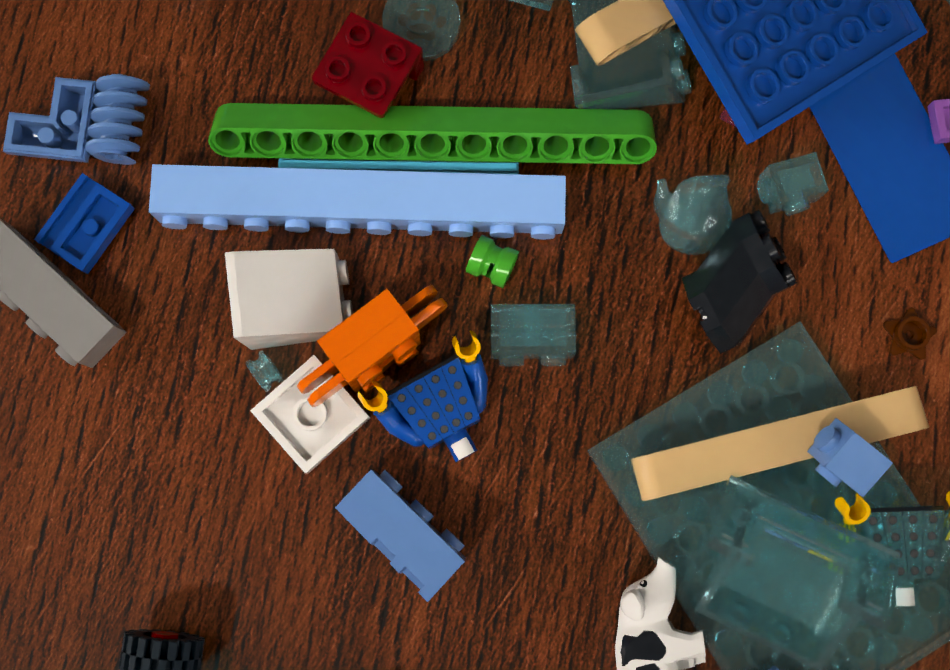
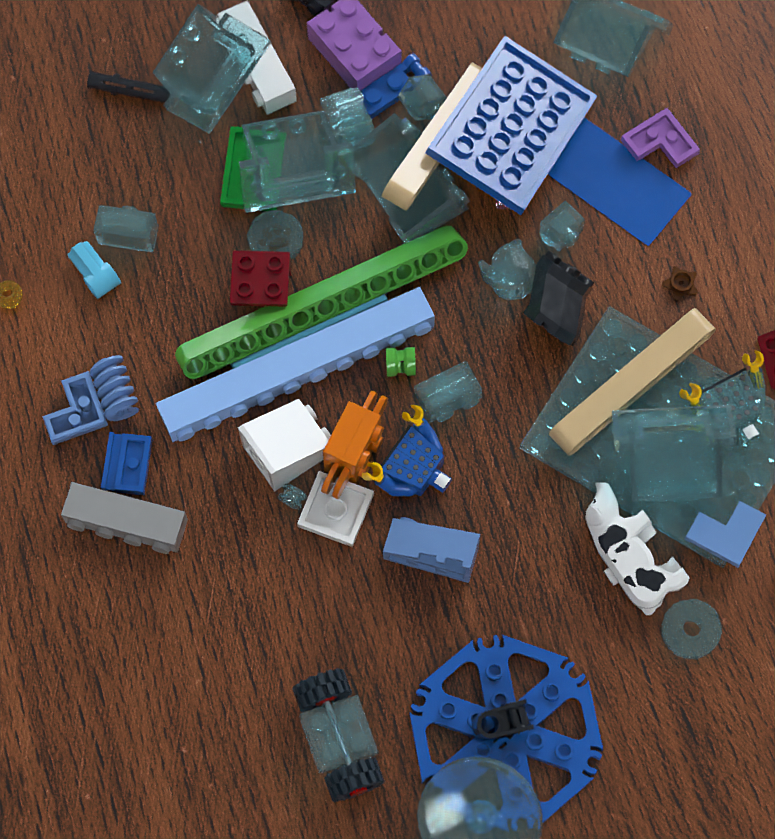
camera: 25 degrees left, 10 degrees down
(847, 458) = (673, 365): medium blue brick -> none

